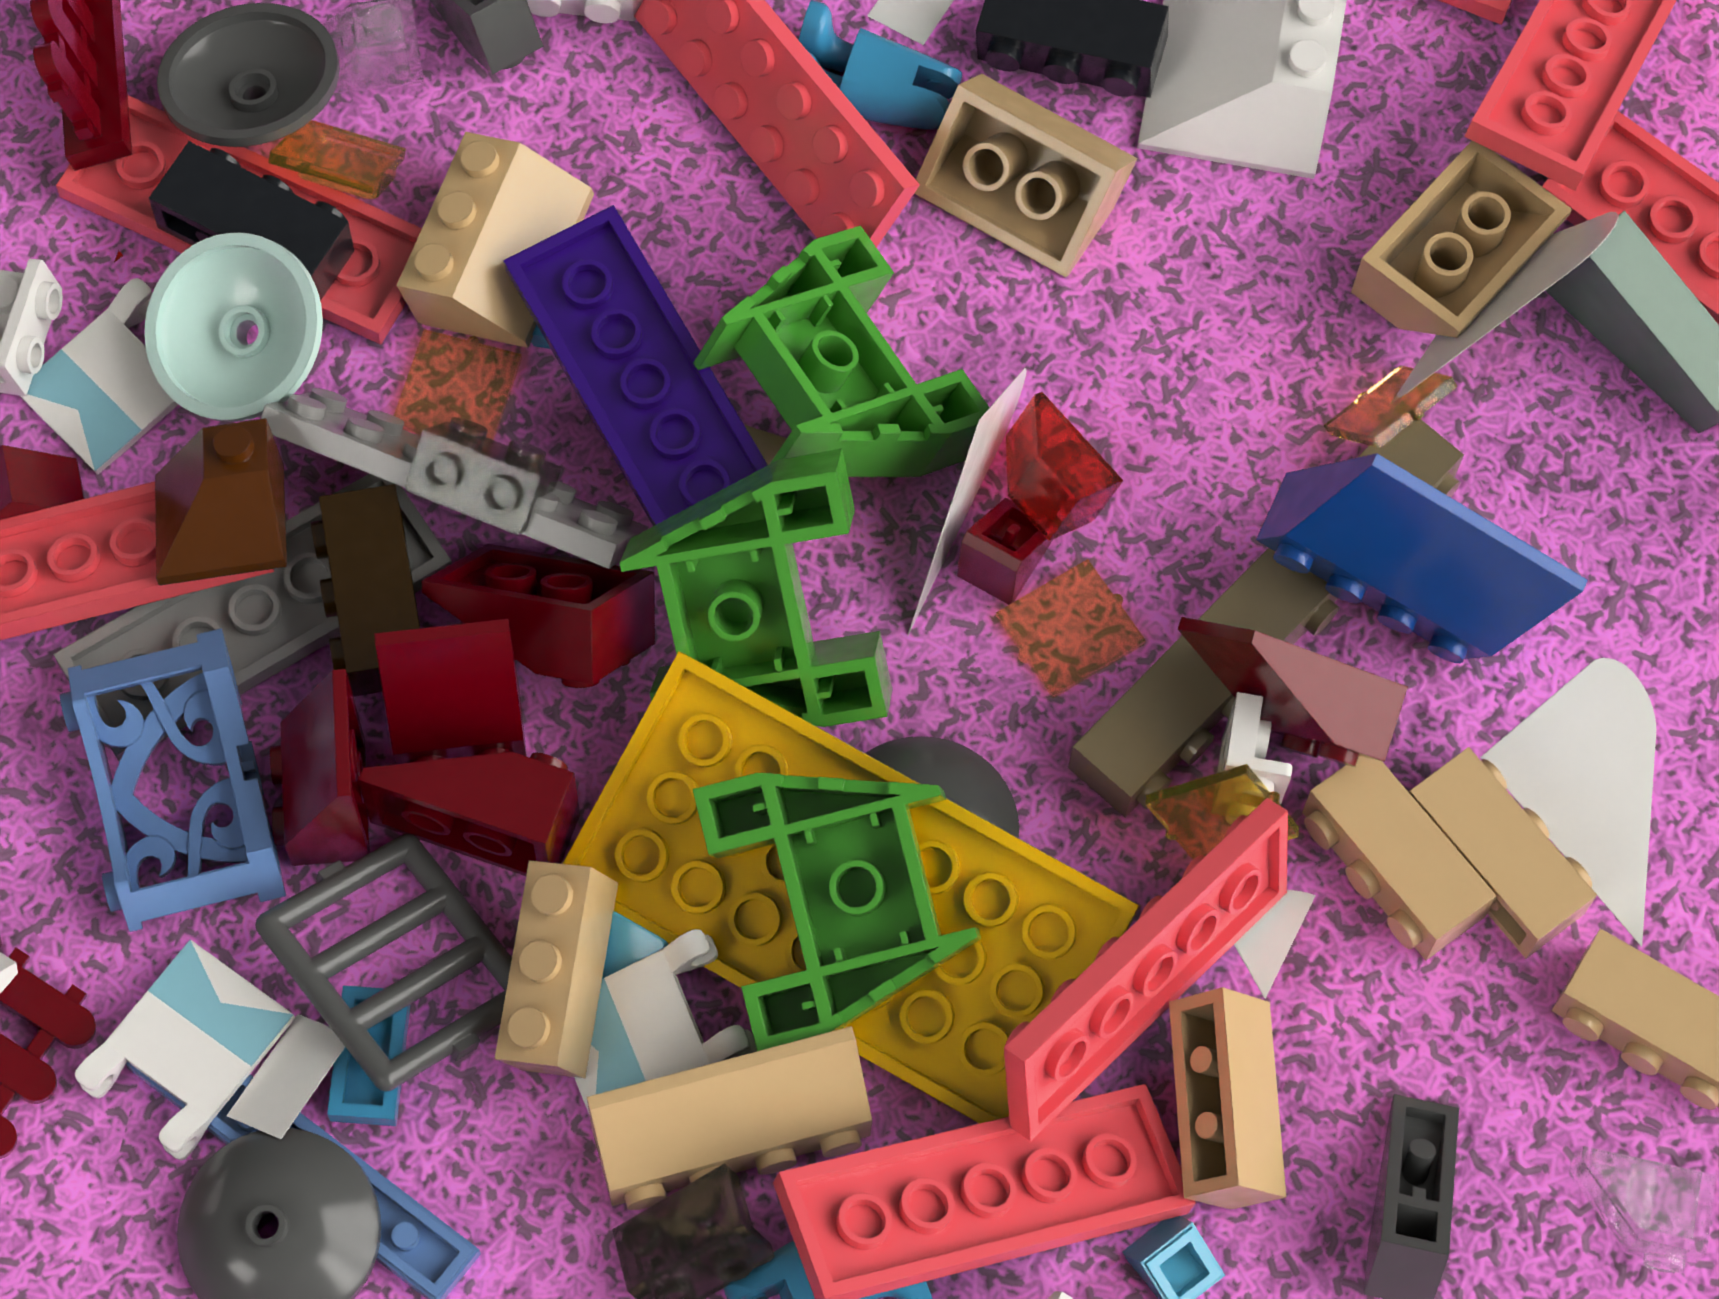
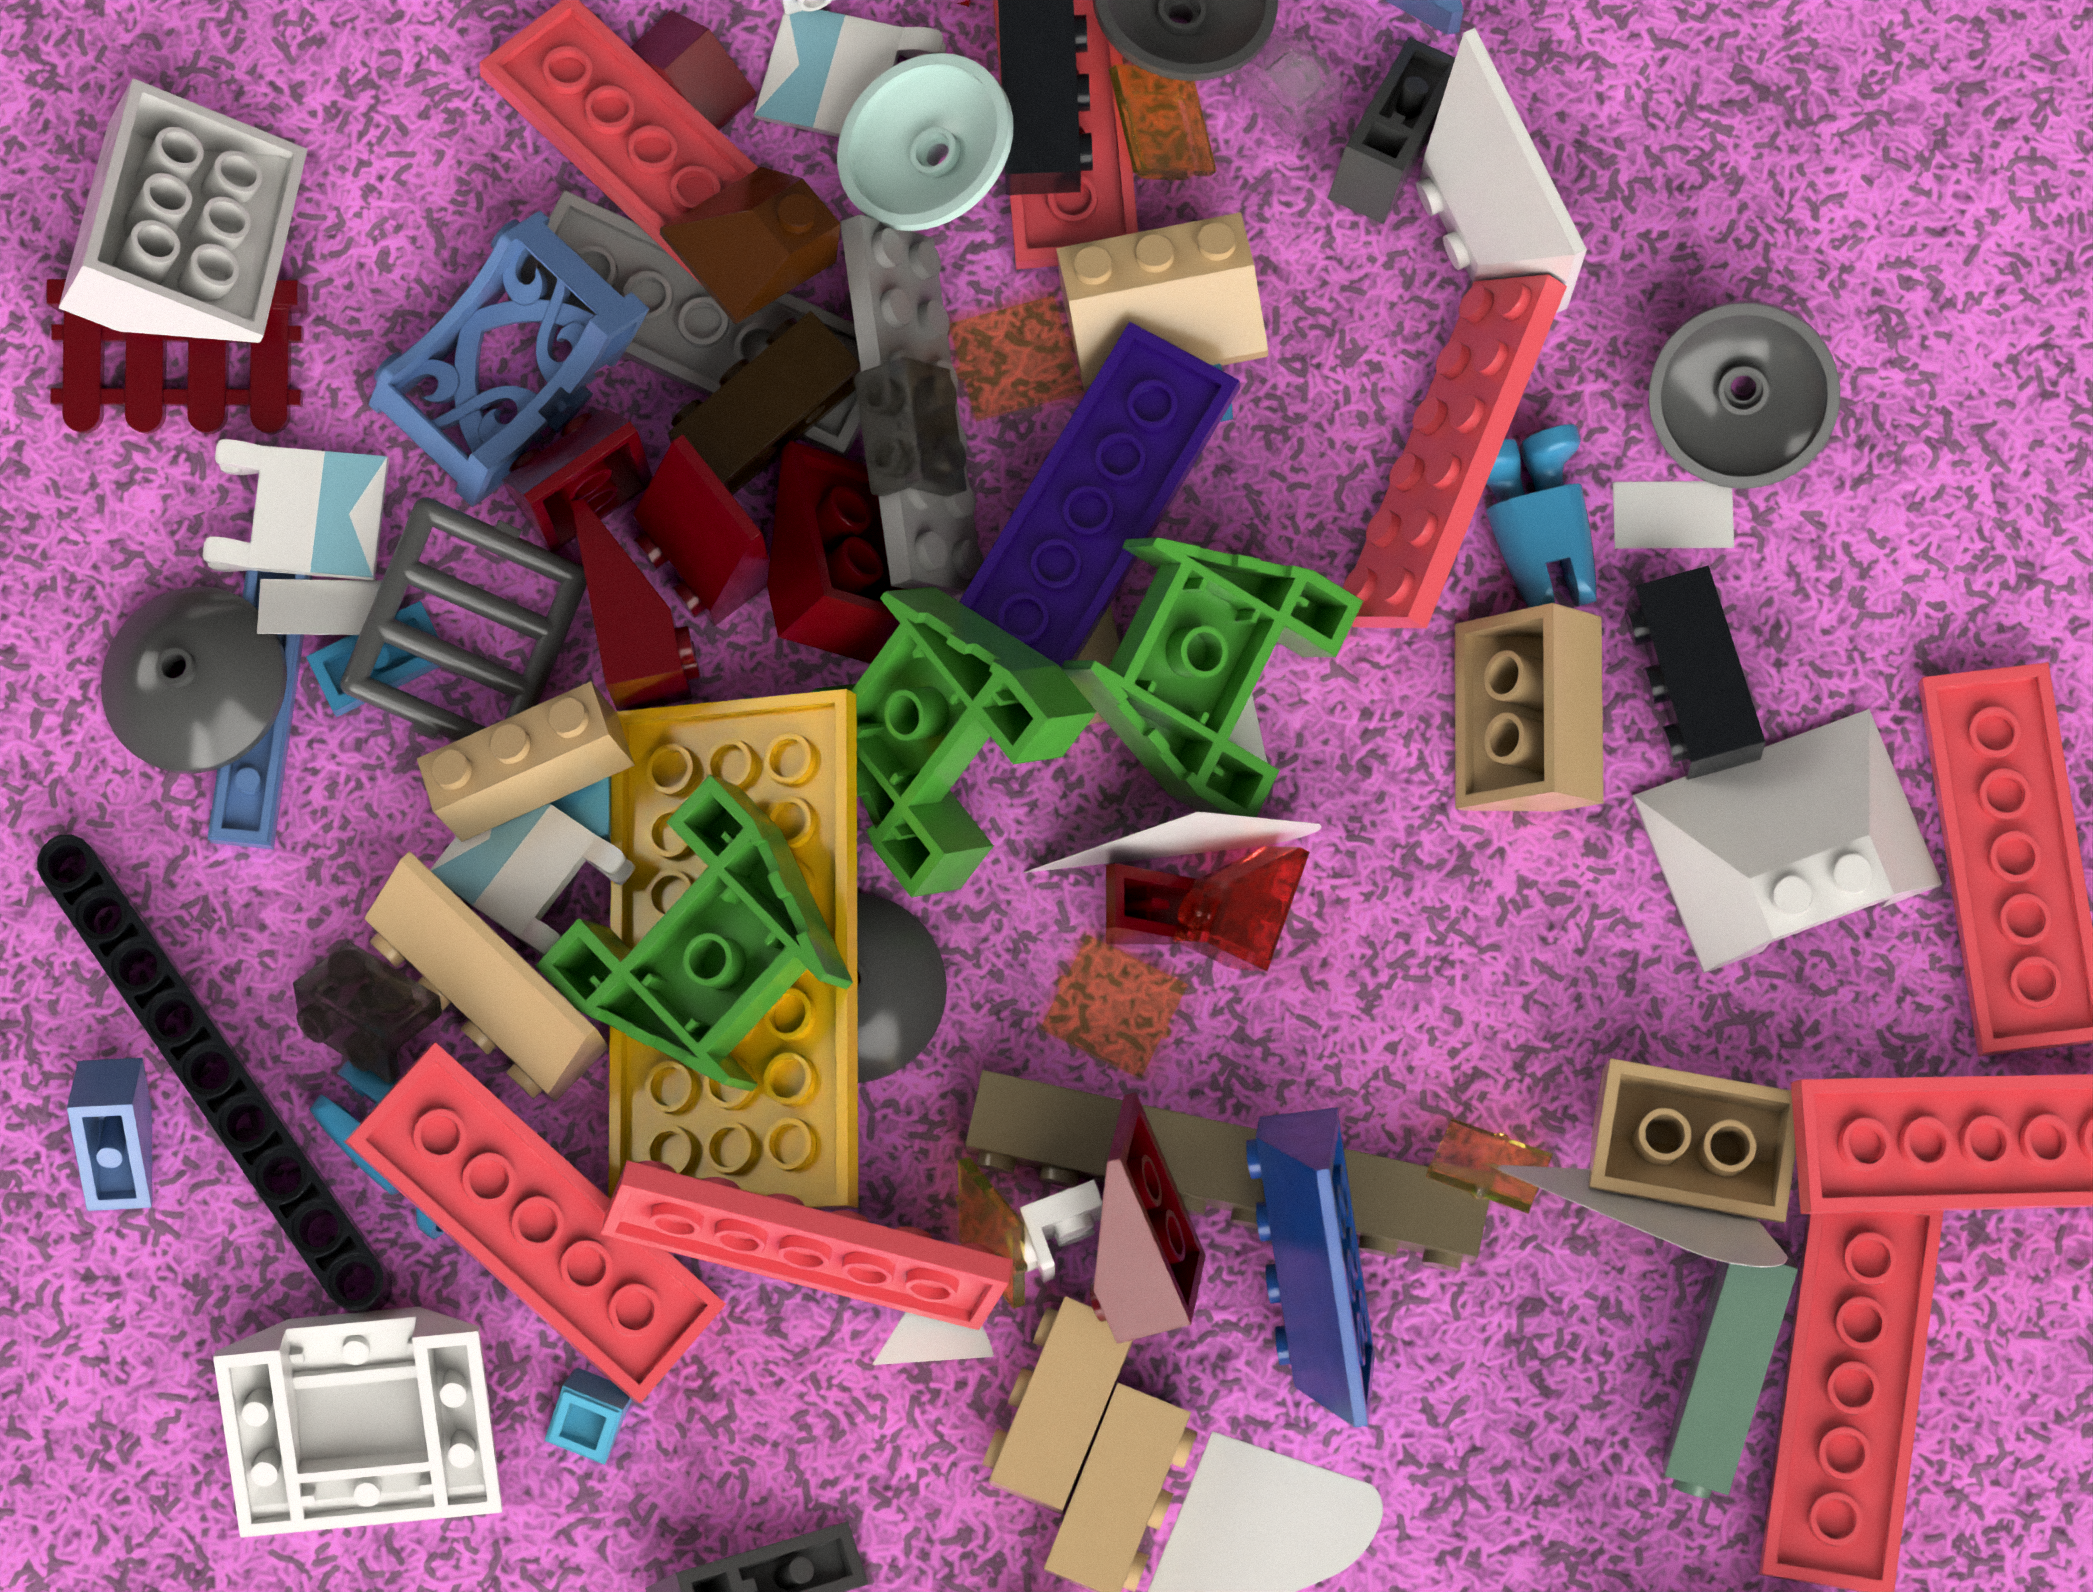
camera: 65 degrees right, 10 degrees up
(1227, 1099) = (744, 1379): tan brick -> none

